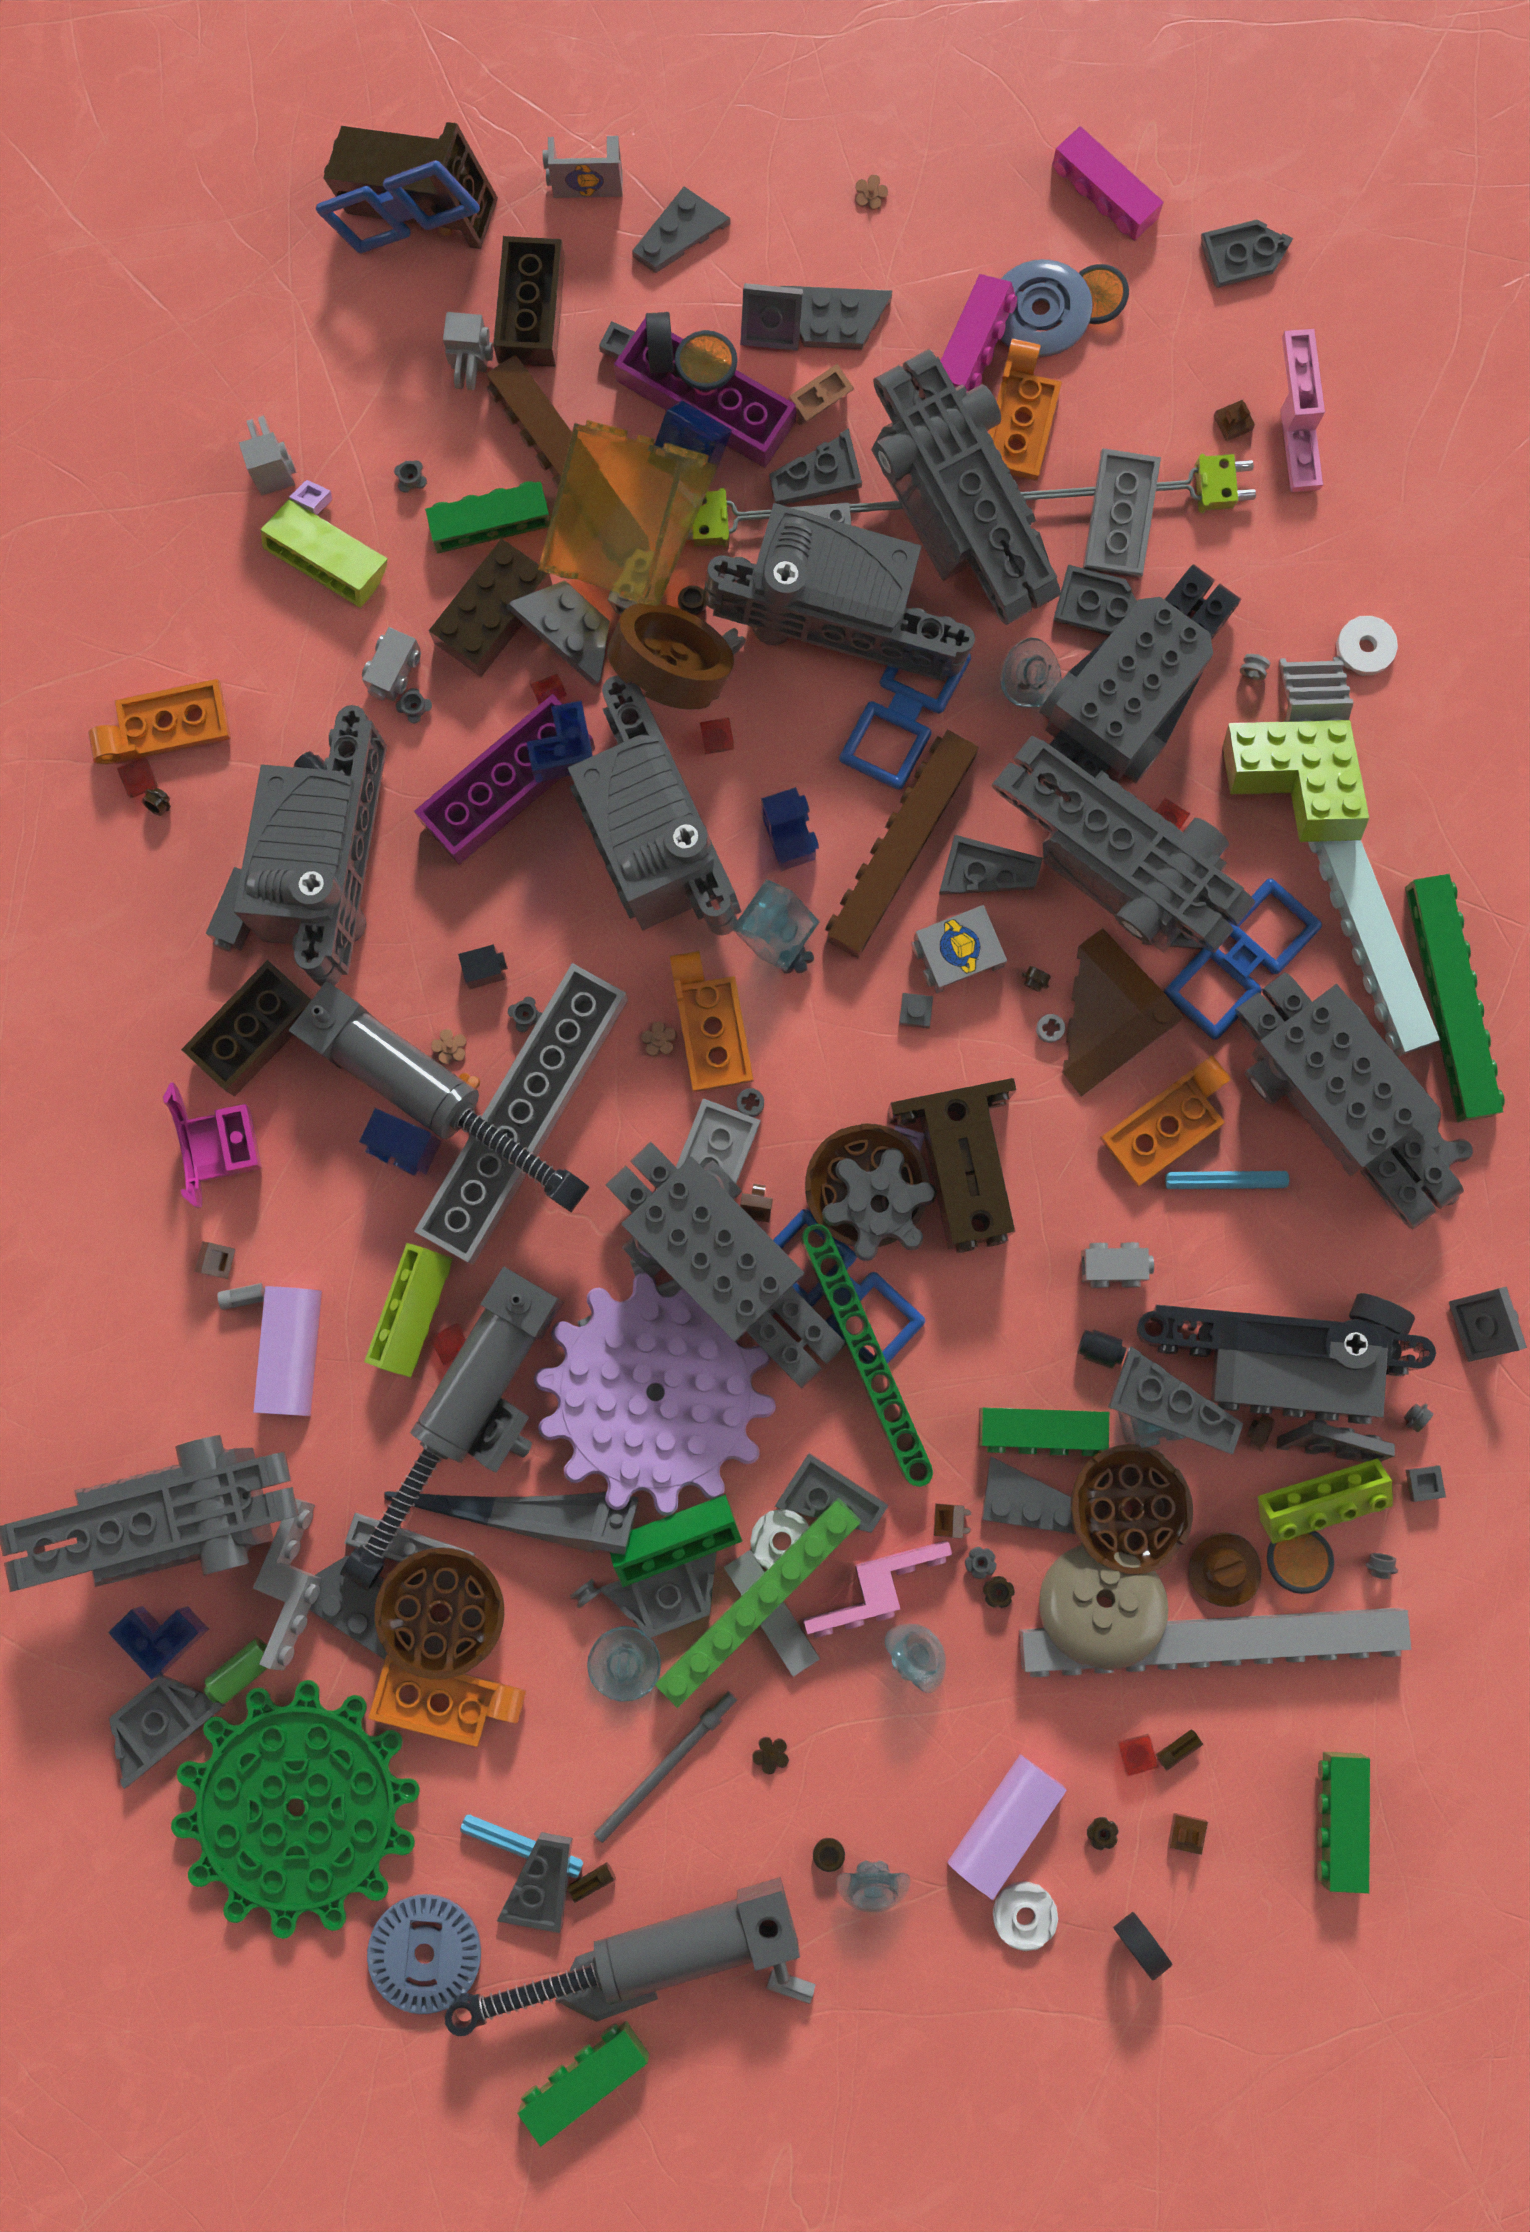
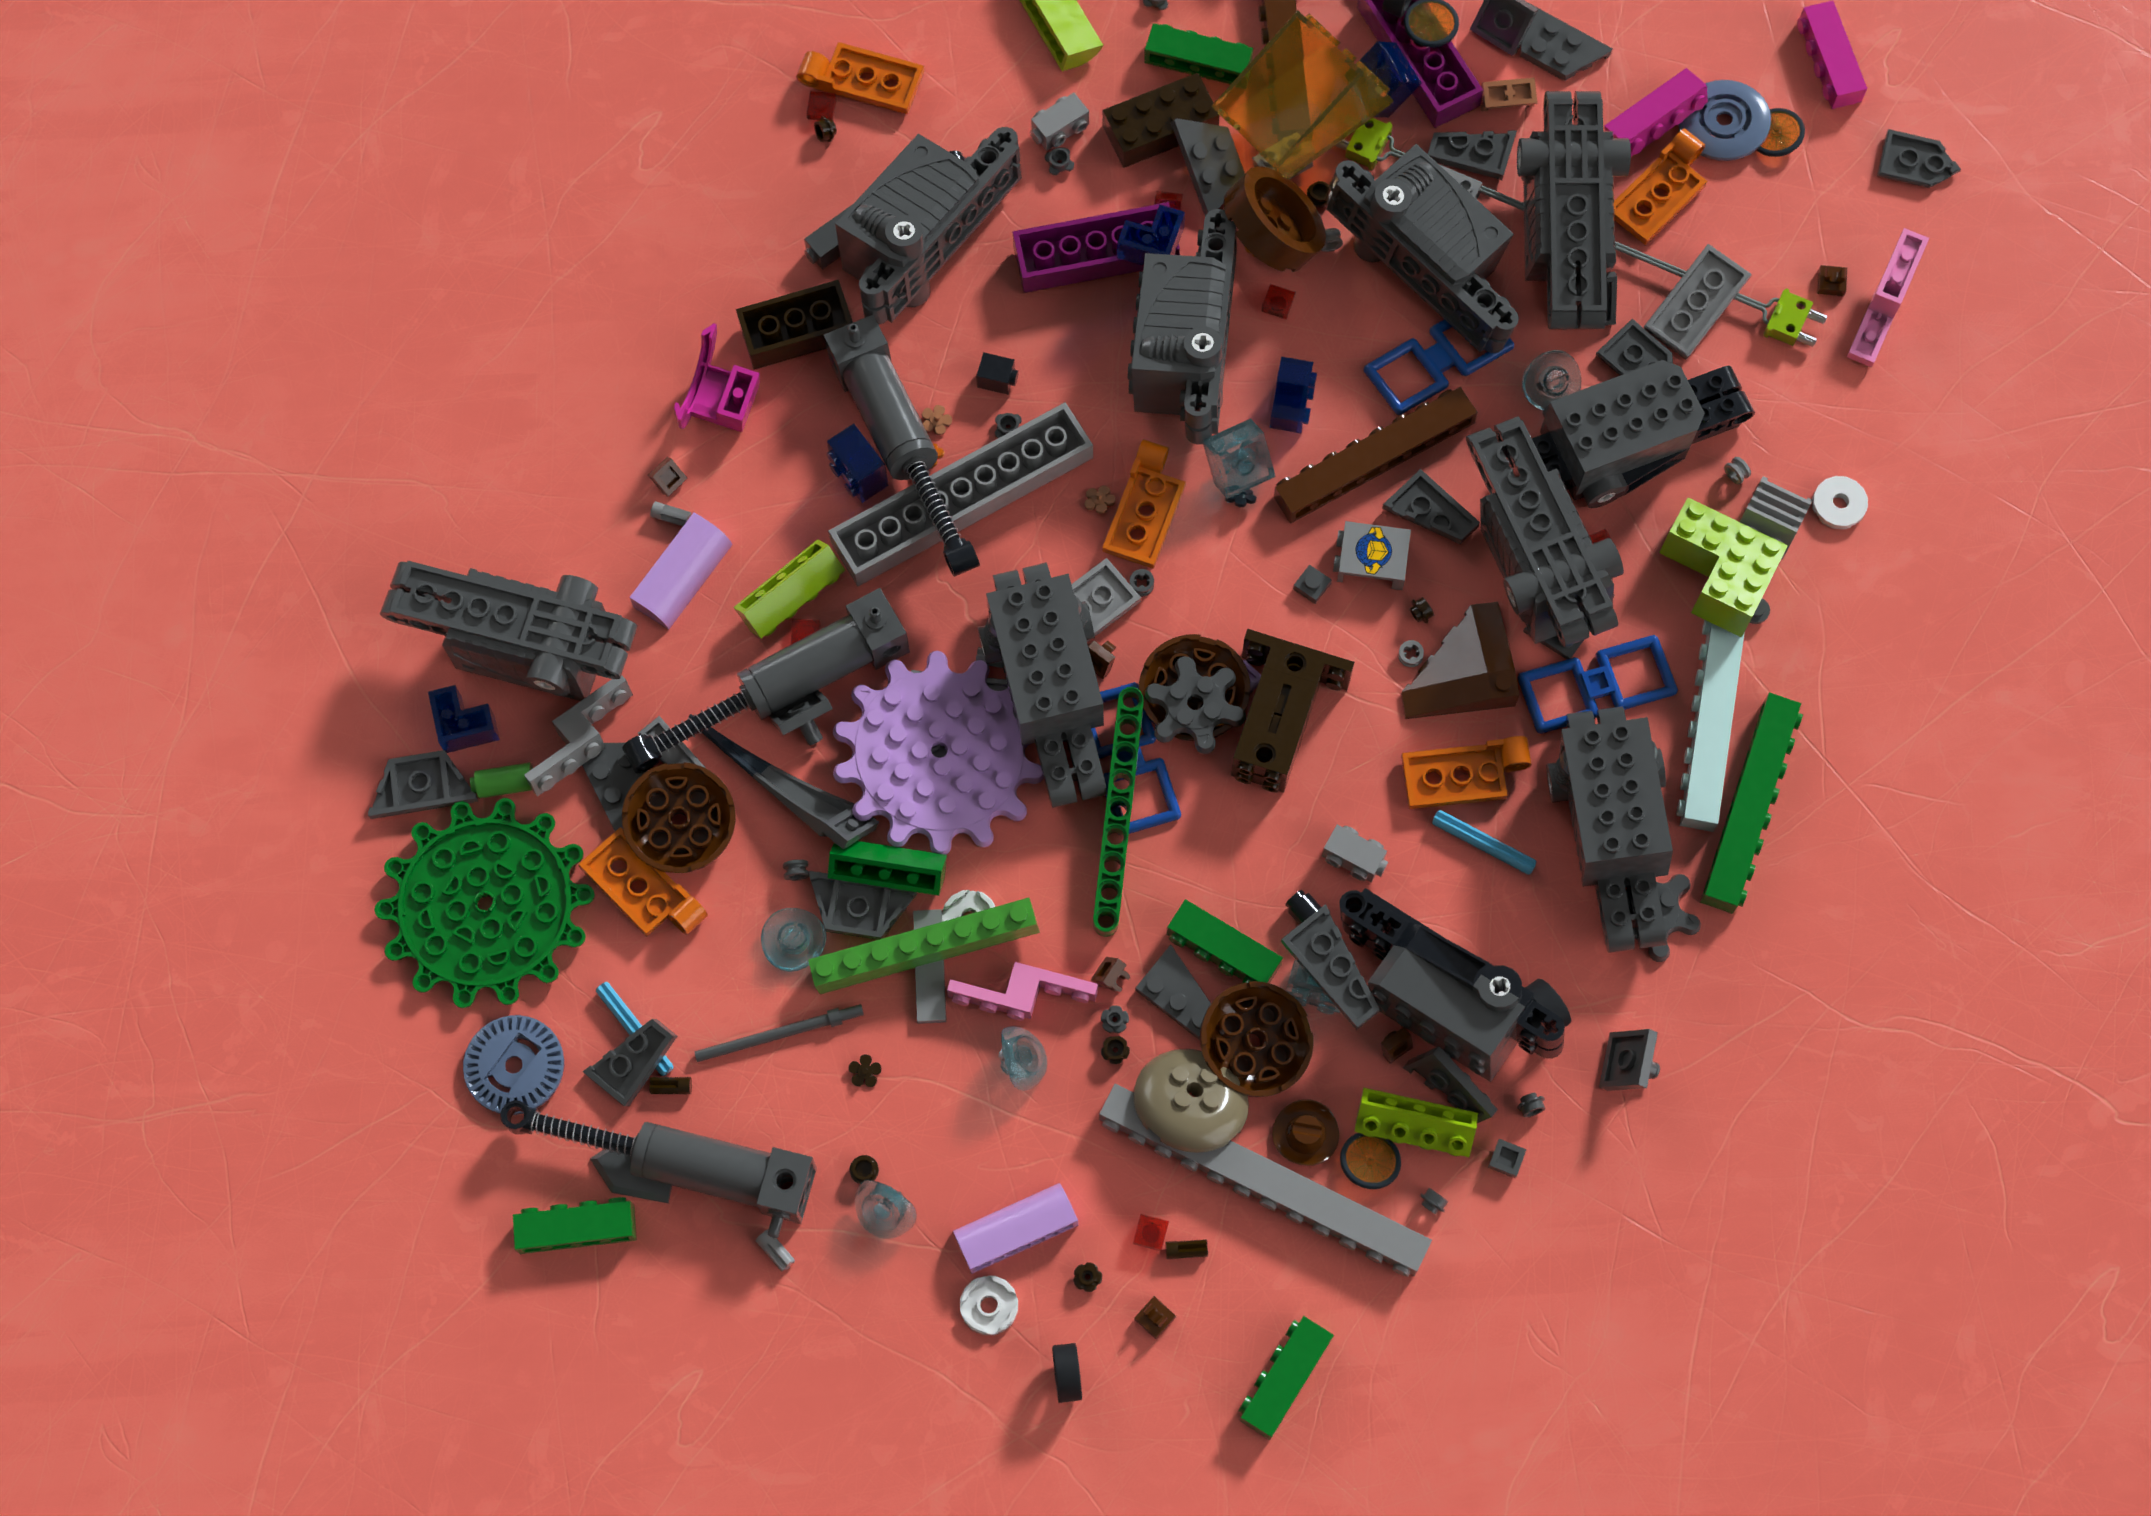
camera: 30 degrees right, 10 degrees down
(819, 1485) = (1023, 884): dark grey wing -> none

